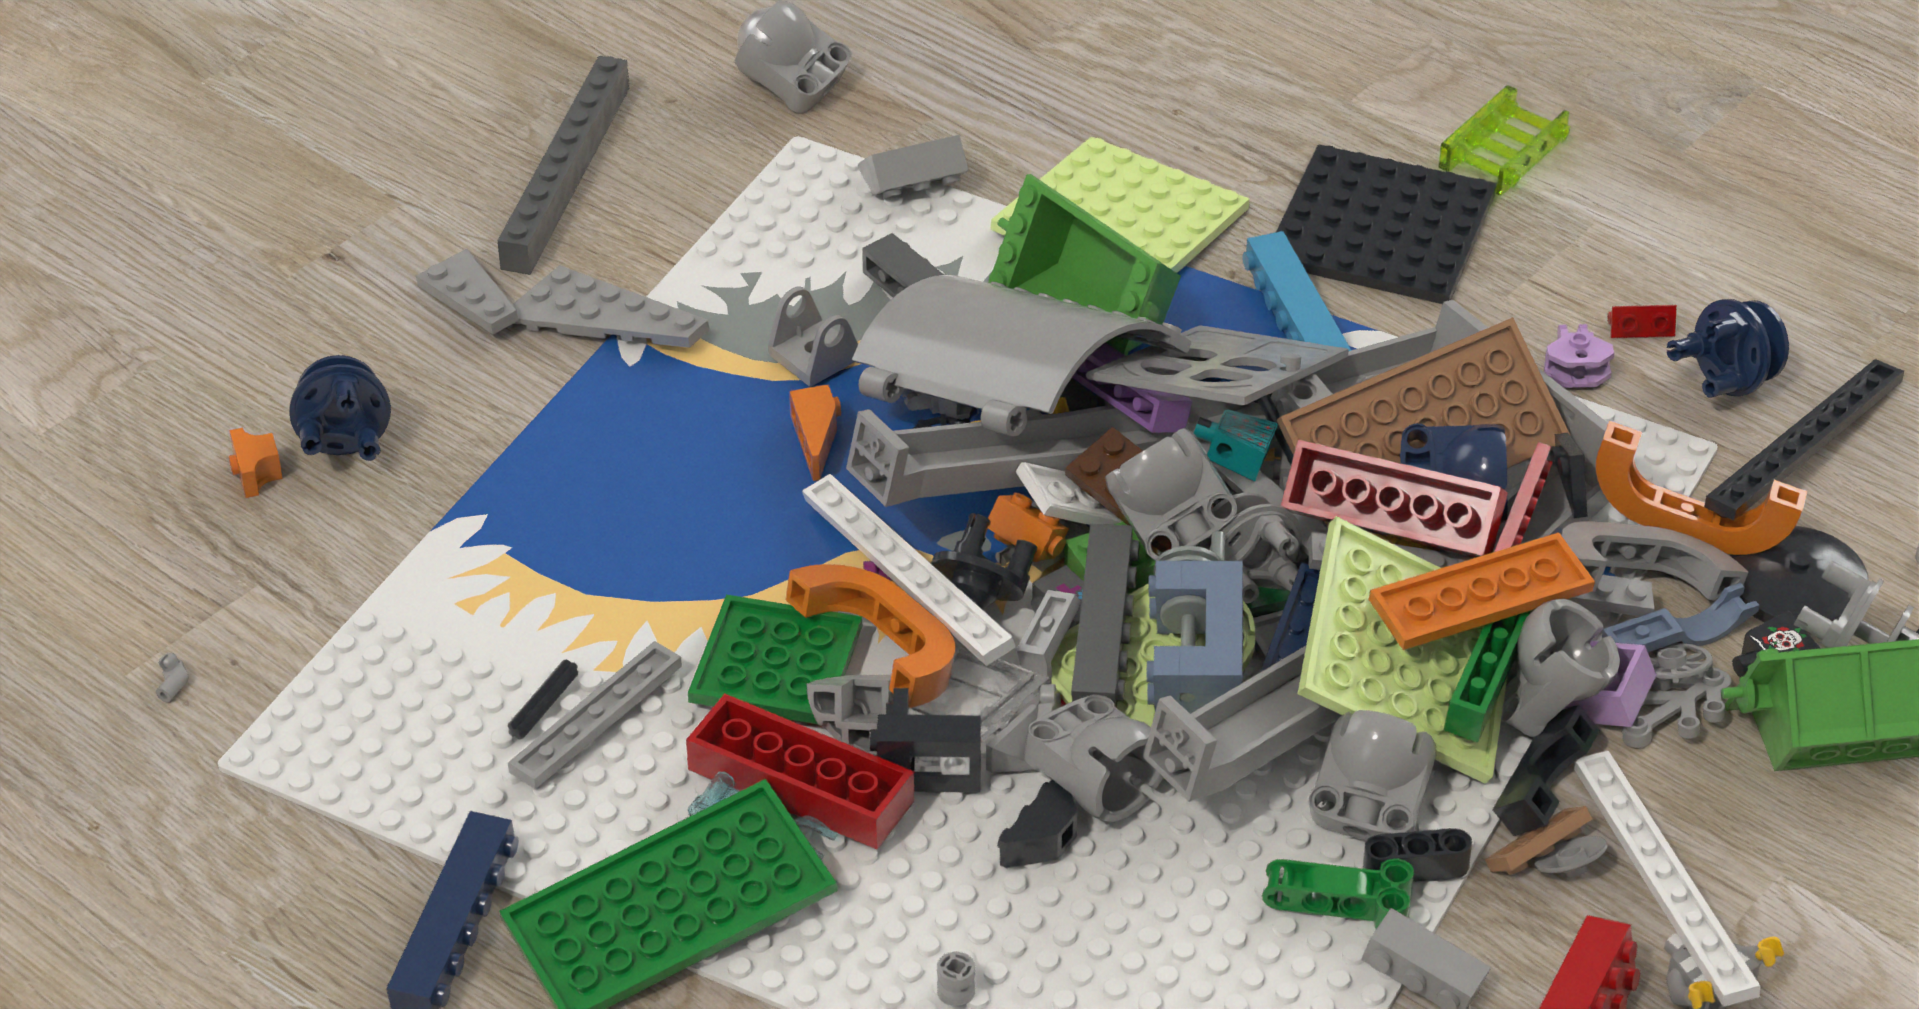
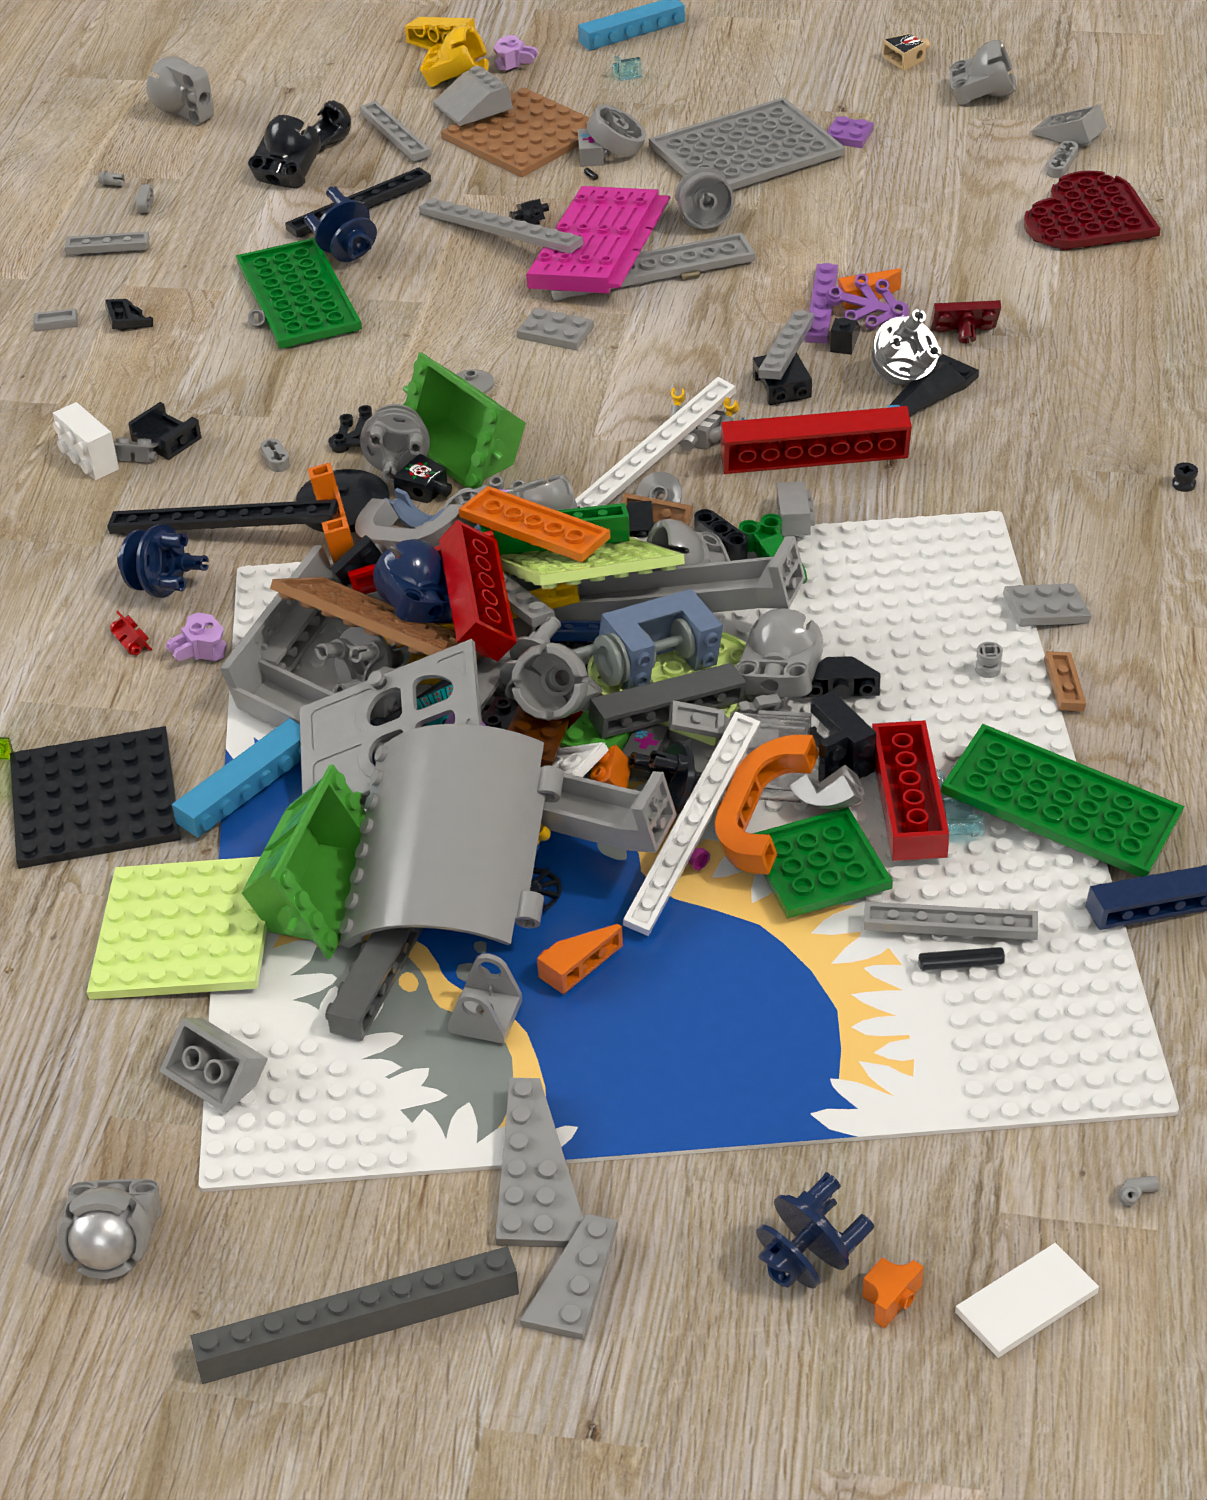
camera: 120 degrees left, 0 degrees up
(155, 545) = (1026, 1300): none -> white tile

